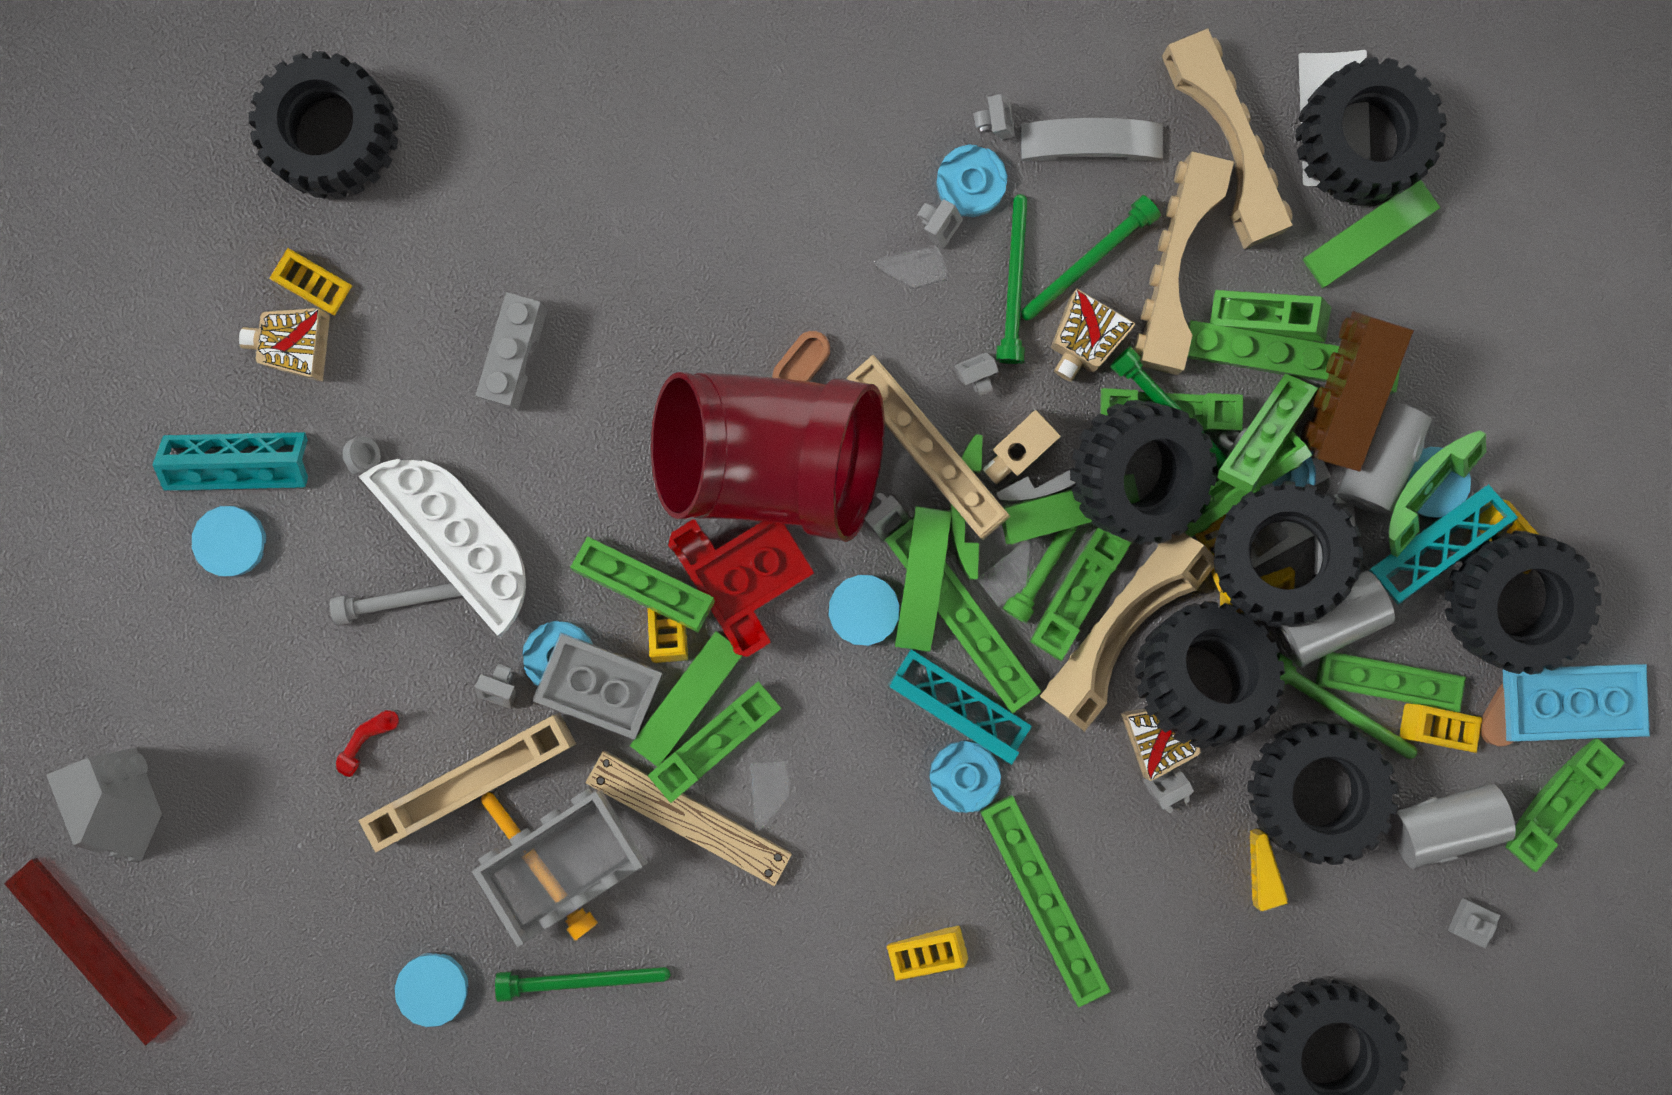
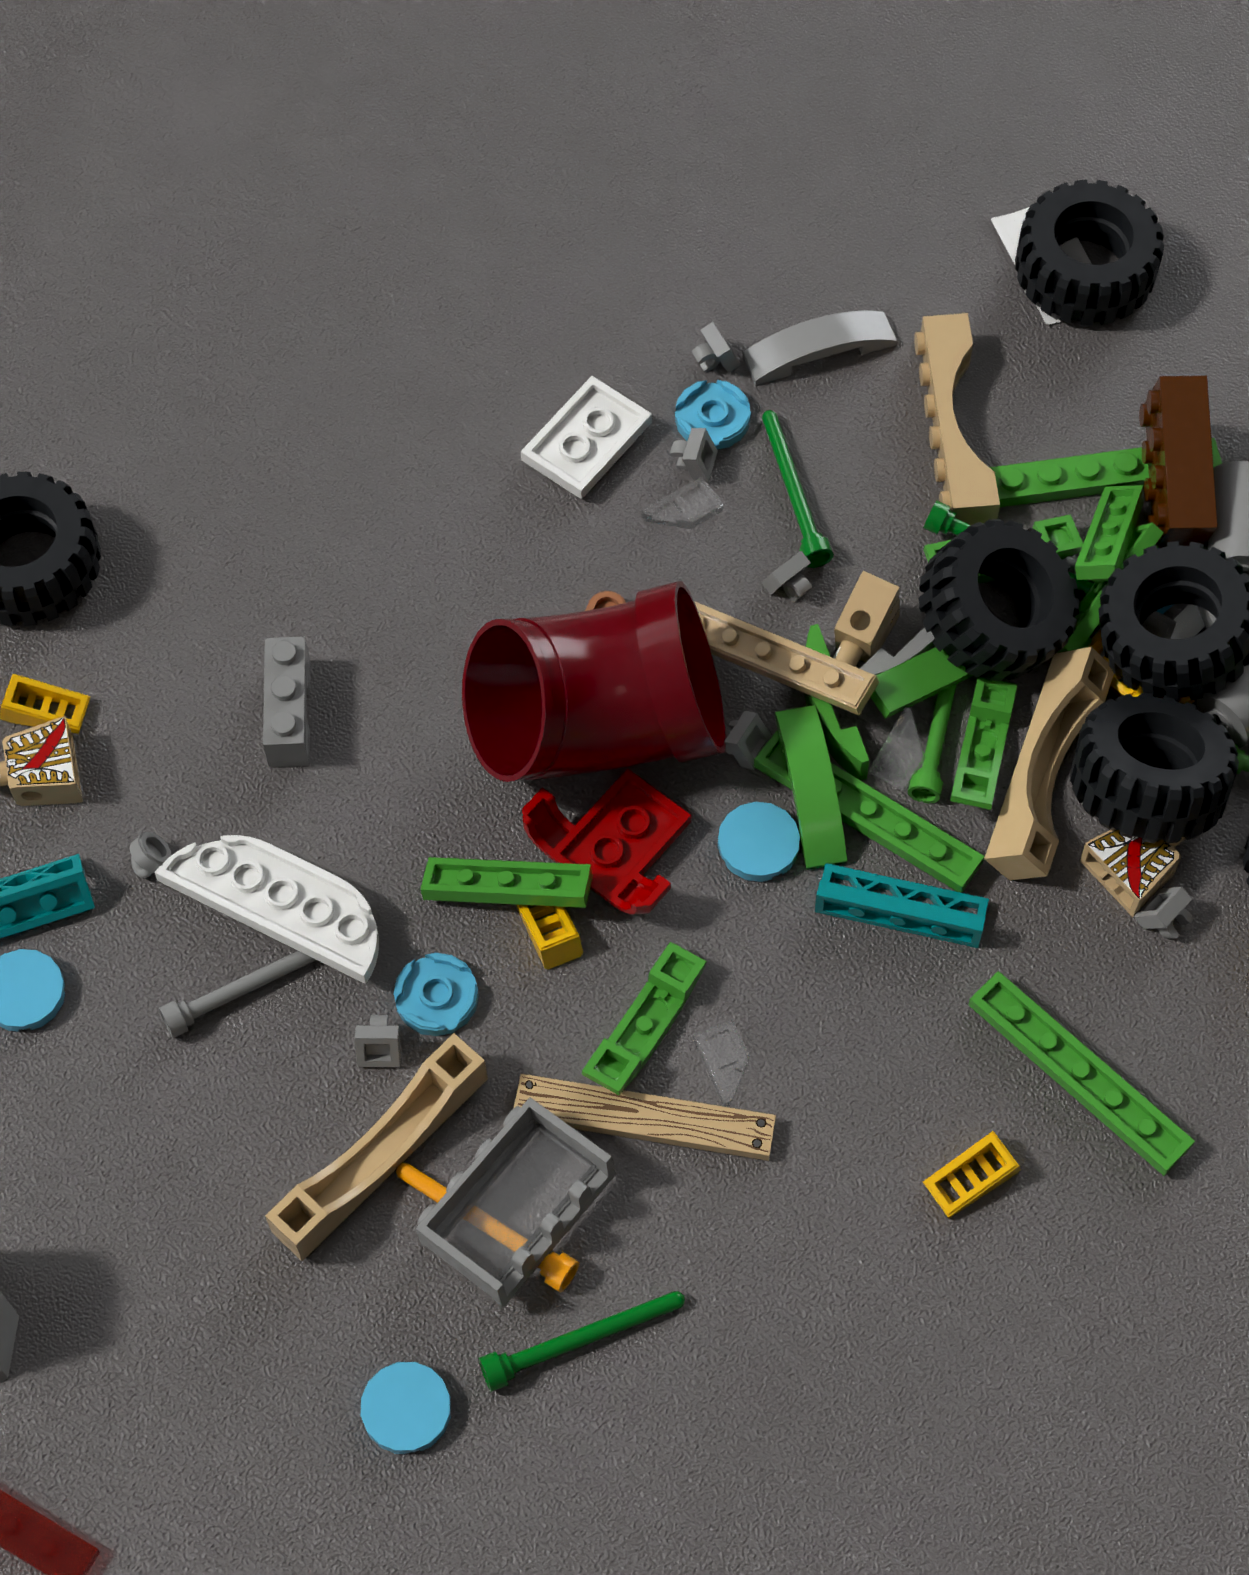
camera: 20 degrees left, 25 degrees down
(382, 723) = (255, 1127): red piece -> none
(597, 686) = (492, 1000): light grey plate -> none
(686, 699) = (597, 990): bright green tile -> none
(851, 169) = (586, 437): none -> white plate
(965, 776) = (937, 975): medium azure tile -> none
(1087, 335) = (889, 509): torso -> none
(1142, 213) = (897, 390): green piece -> none
(1200, 73) = (903, 257): tan arch -> none
(1273, 314) = (1080, 430): bright green slope -> none
(1371, 233) = (1129, 343): bright green slope -> none

